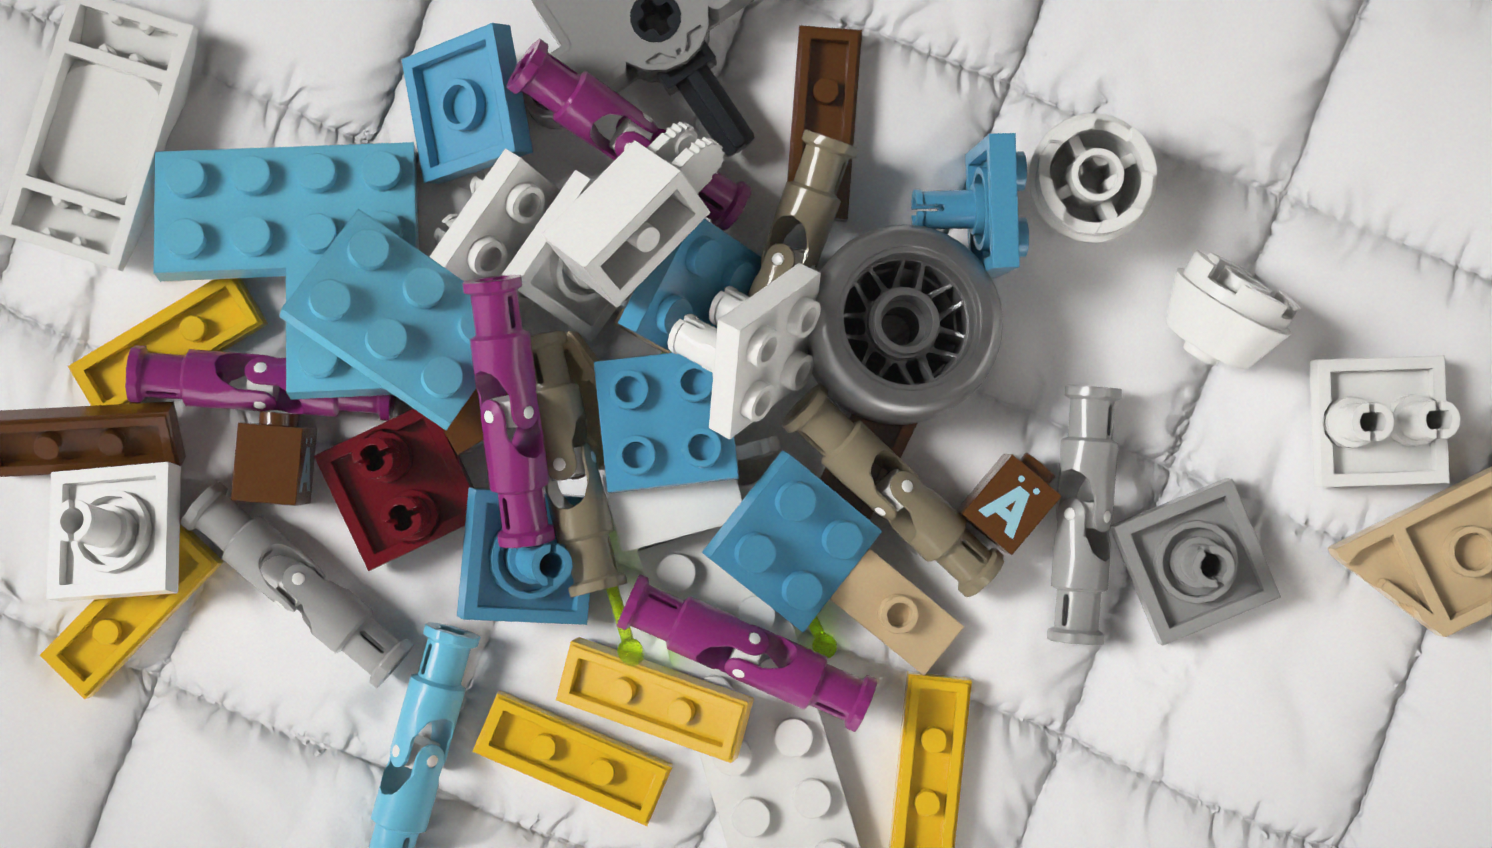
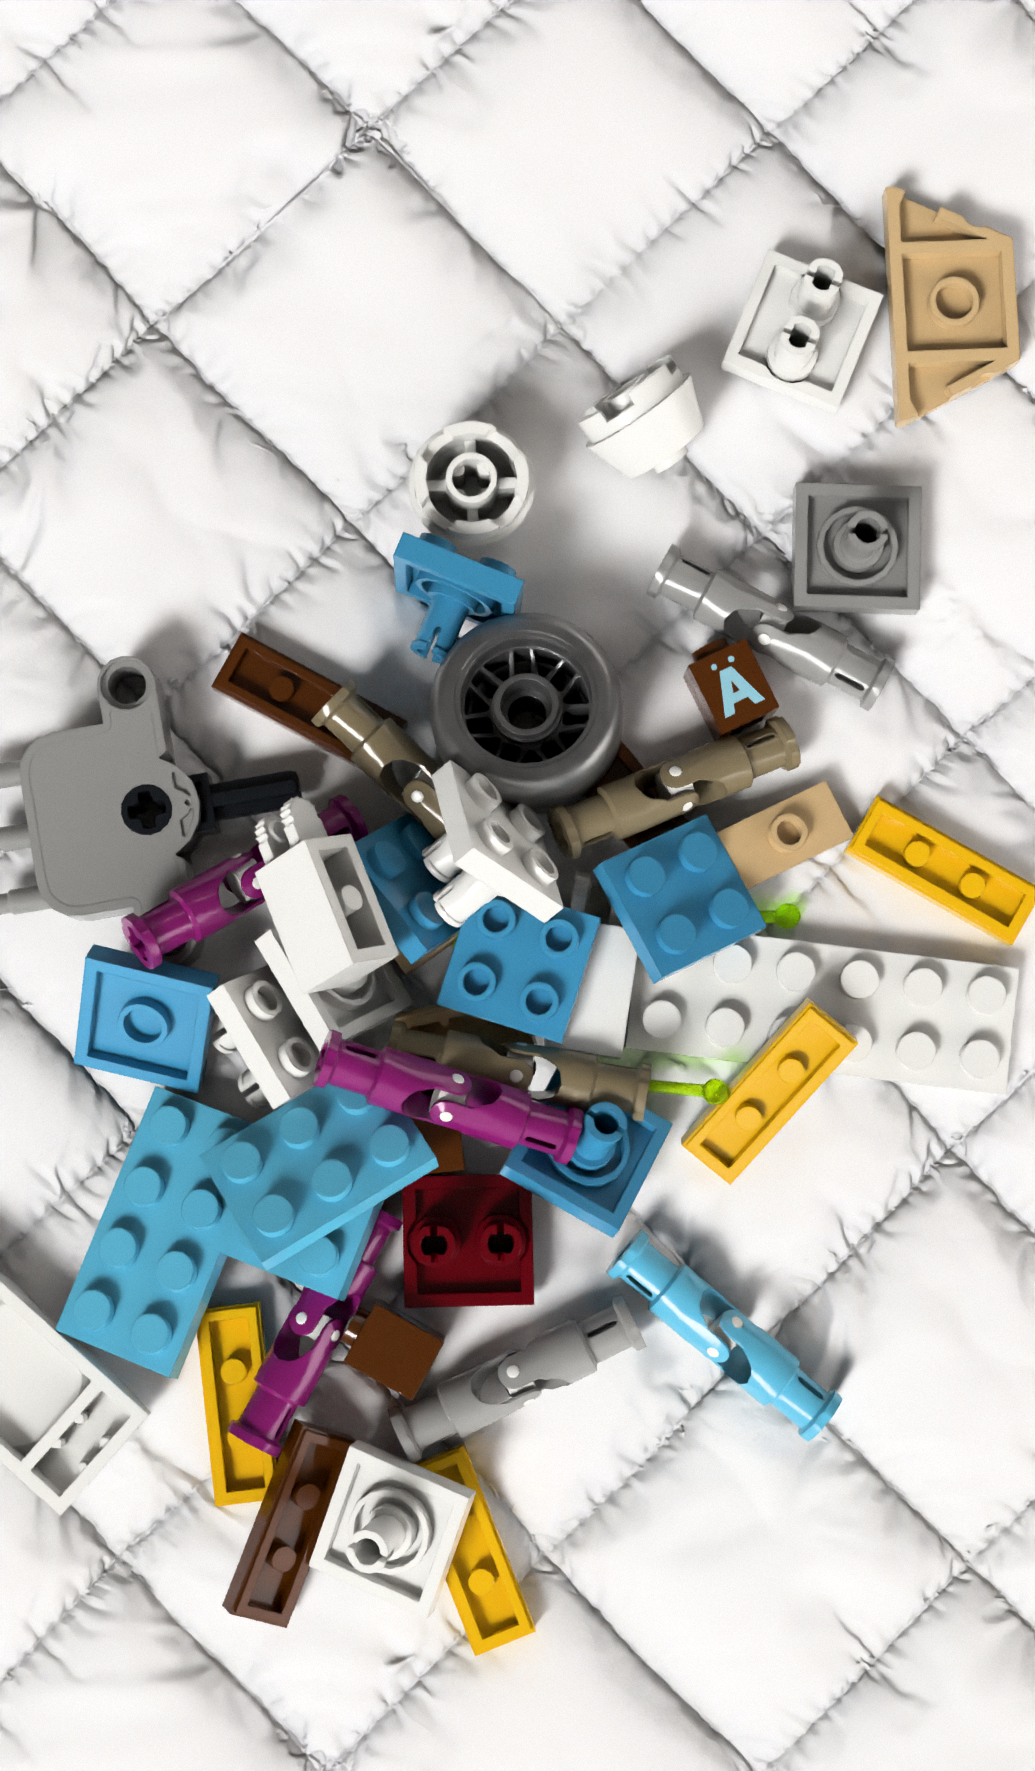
camera: 75 degrees left, 5 degrees down
(572, 758) = (790, 1193): yellow tile -> none
(735, 647) = (731, 1015): magenta piece -> none

